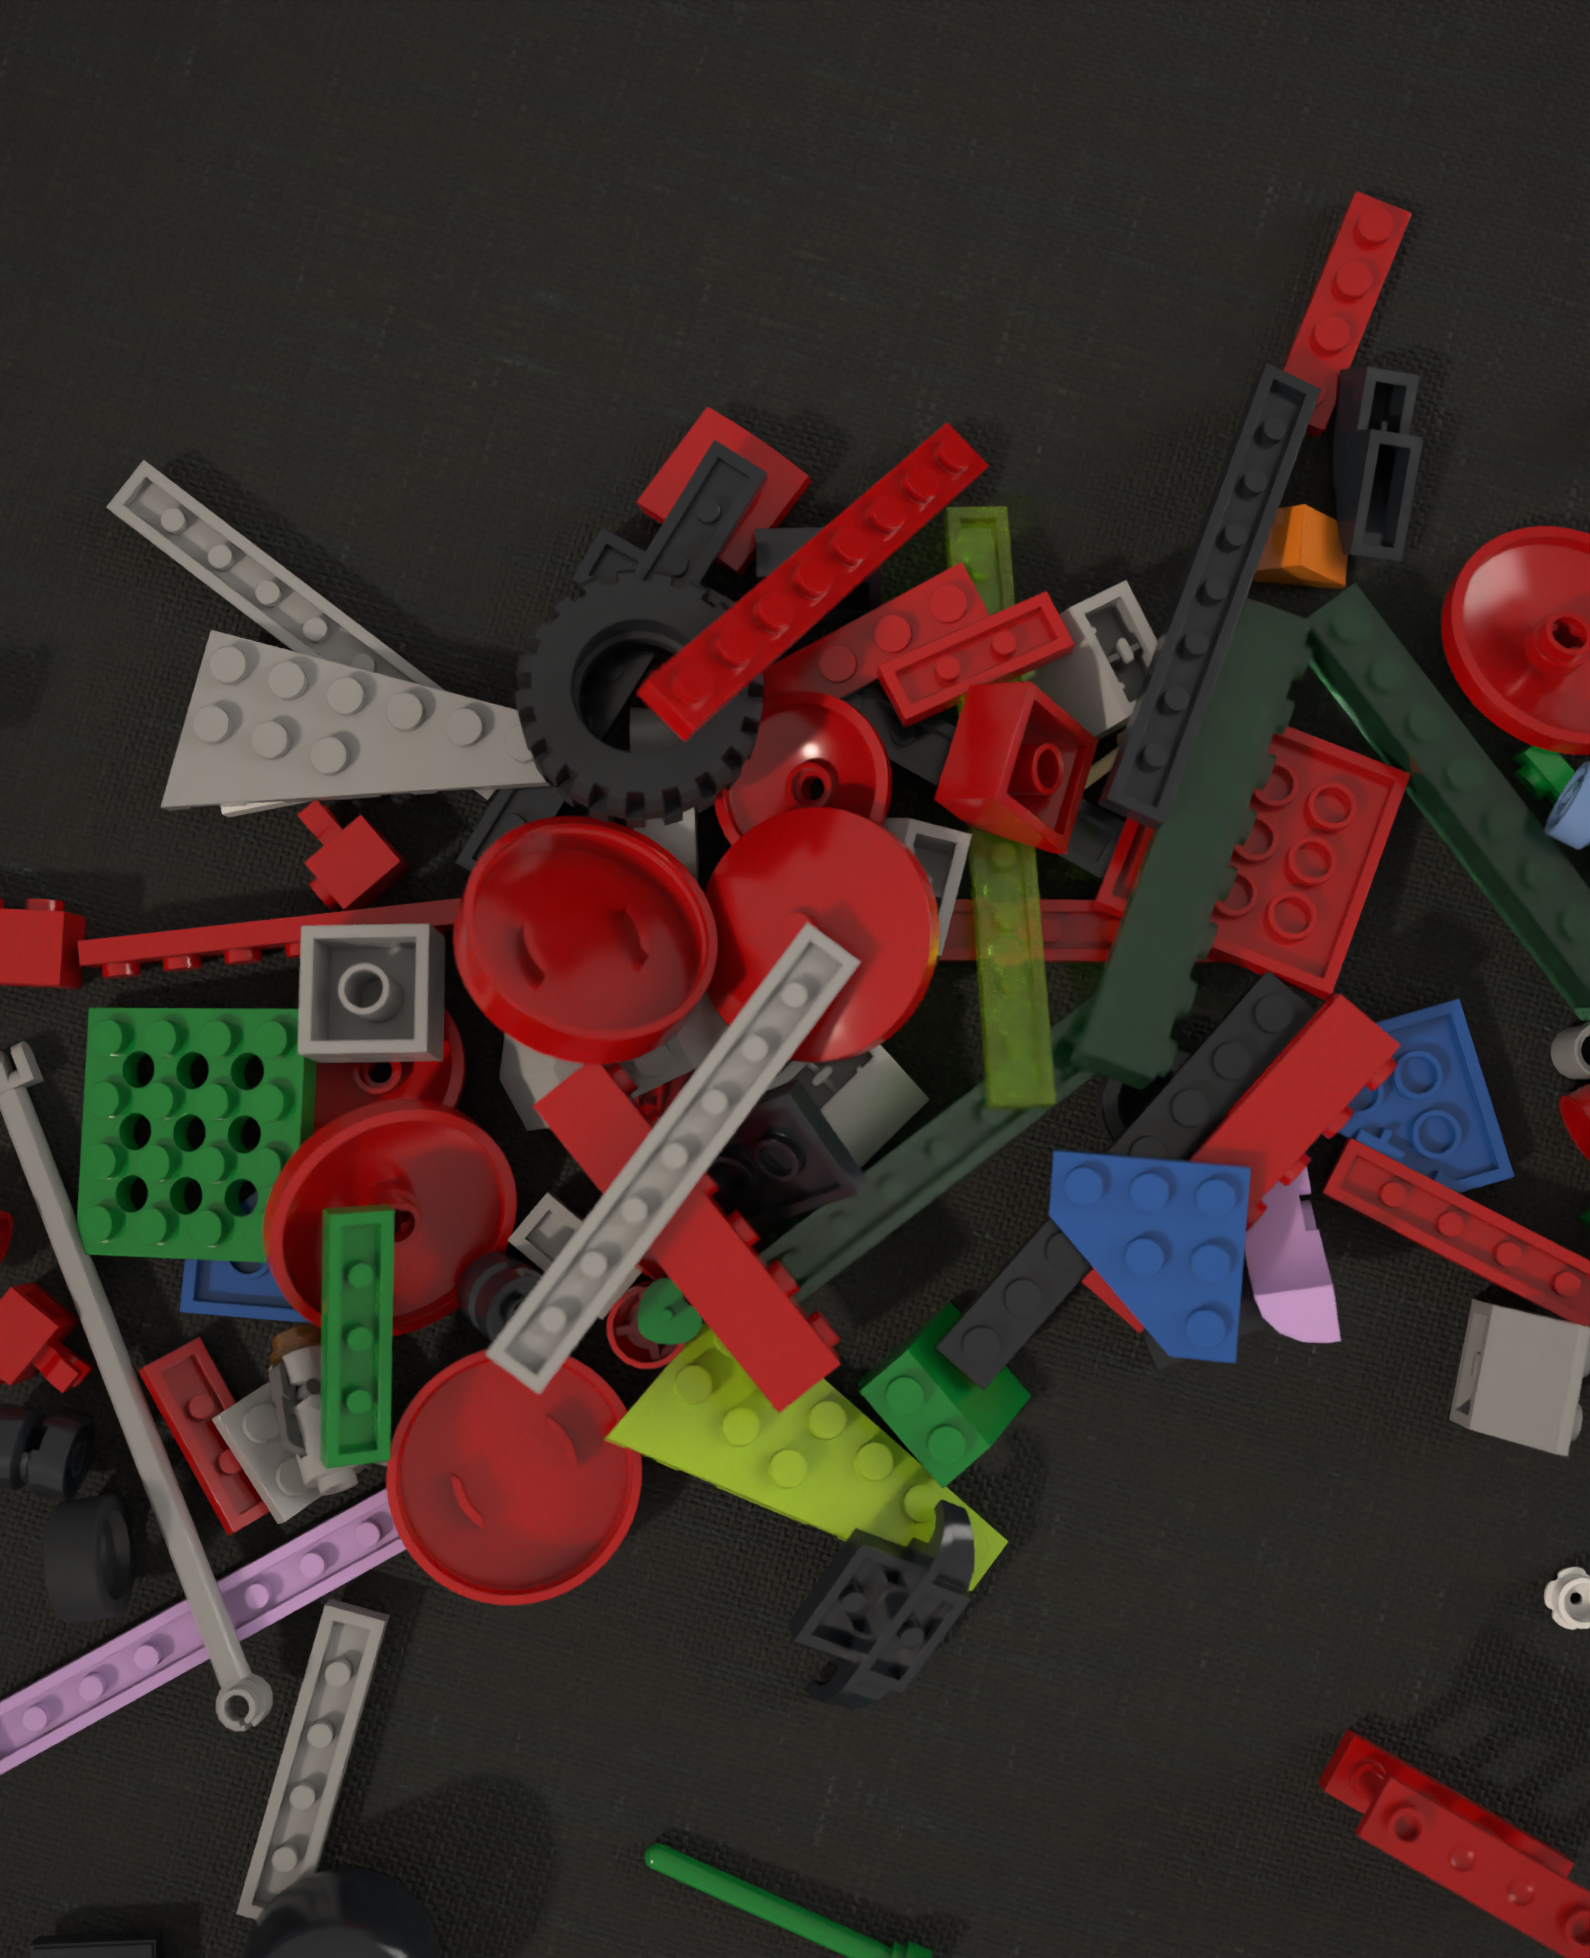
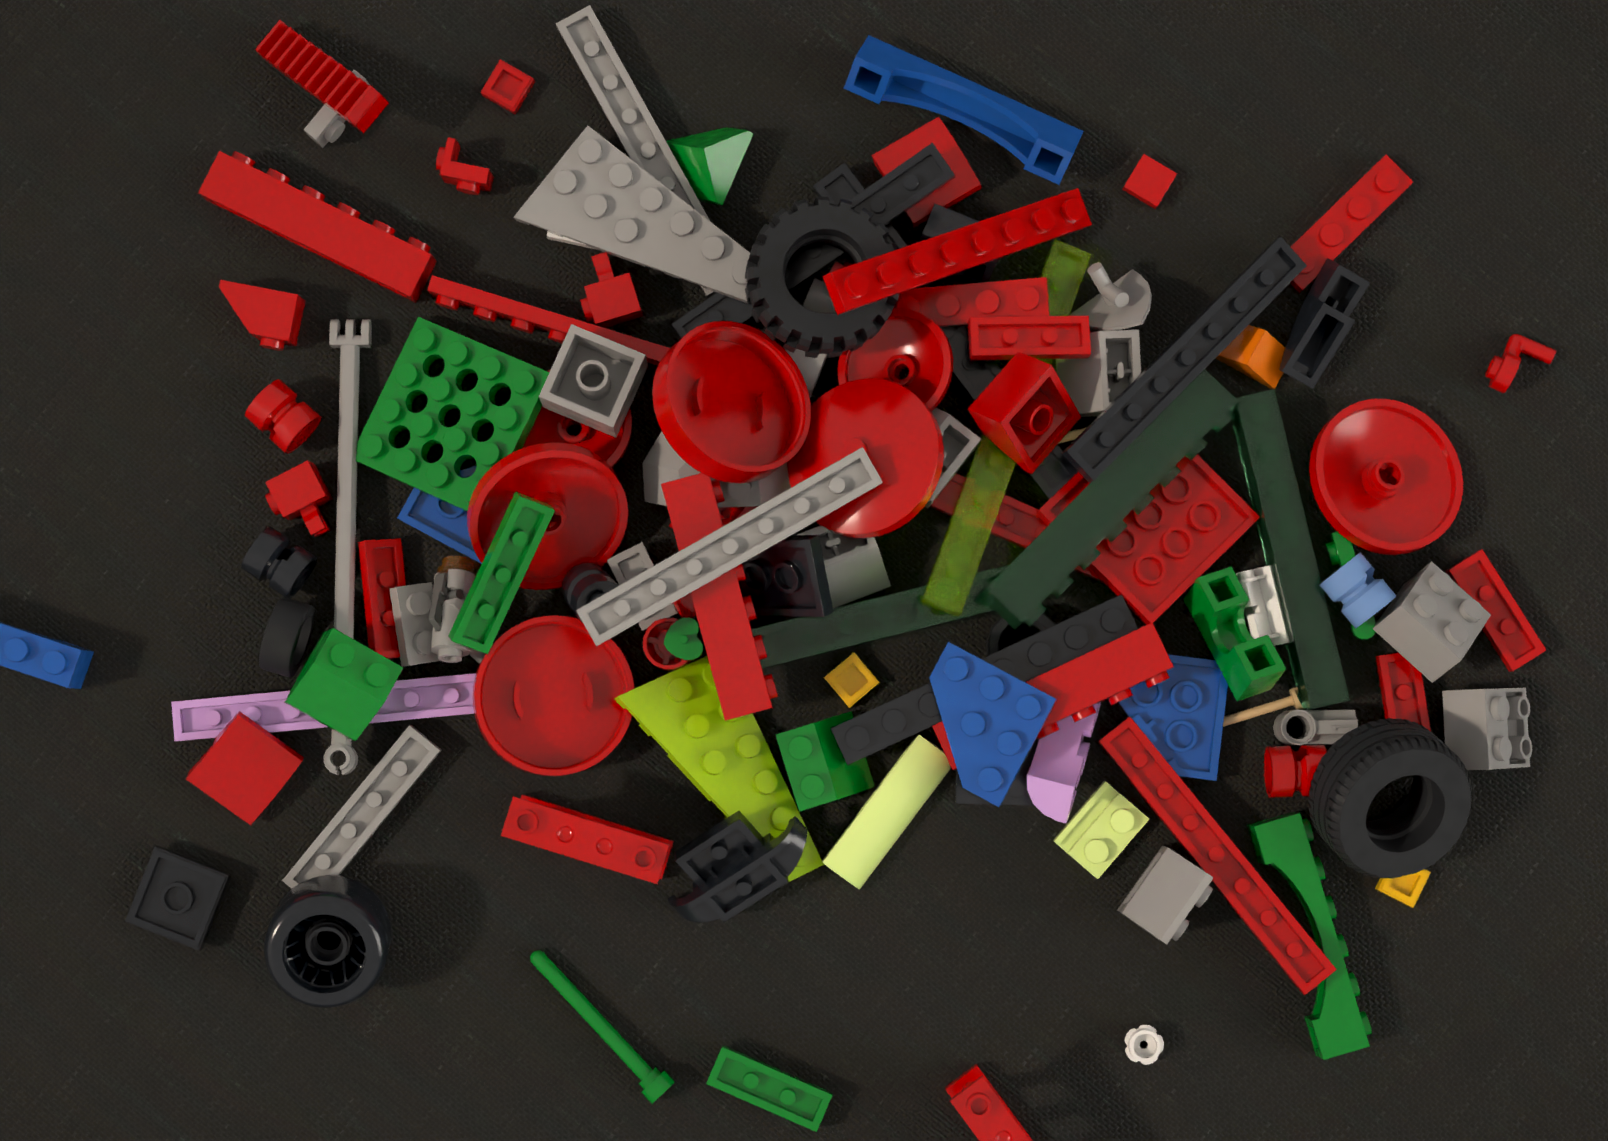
camera: 20 degrees right, 0 degrees up
(73, 779) = (467, 177): none -> red bracket
(80, 627) = (507, 87): none -> red tile
(111, 1773) = (244, 768): none -> red slope
(196, 1599) = (343, 684): none -> green slope
(412, 606) = (711, 160): none -> green slope
(630, 373) = (896, 76): none -> blue arch
(652, 1665) = (587, 838): none -> red fence
(931, 1257) = (851, 680): none -> yellow tile
(1042, 371) = (1149, 181): none -> red tile
(1064, 1427) = (888, 812): none -> yellowish green brick
(1072, 1902) = (769, 1088): none -> green plate
(1078, 558) = (1118, 303): none -> light grey shield
(1380, 1316) = (1101, 829): none -> yellowish green plate
(1412, 934) = (1218, 610): none -> green arch
(1468, 901) = (1264, 607): none -> white hinge
(1566, 1013) = (1265, 708): none -> tan piece

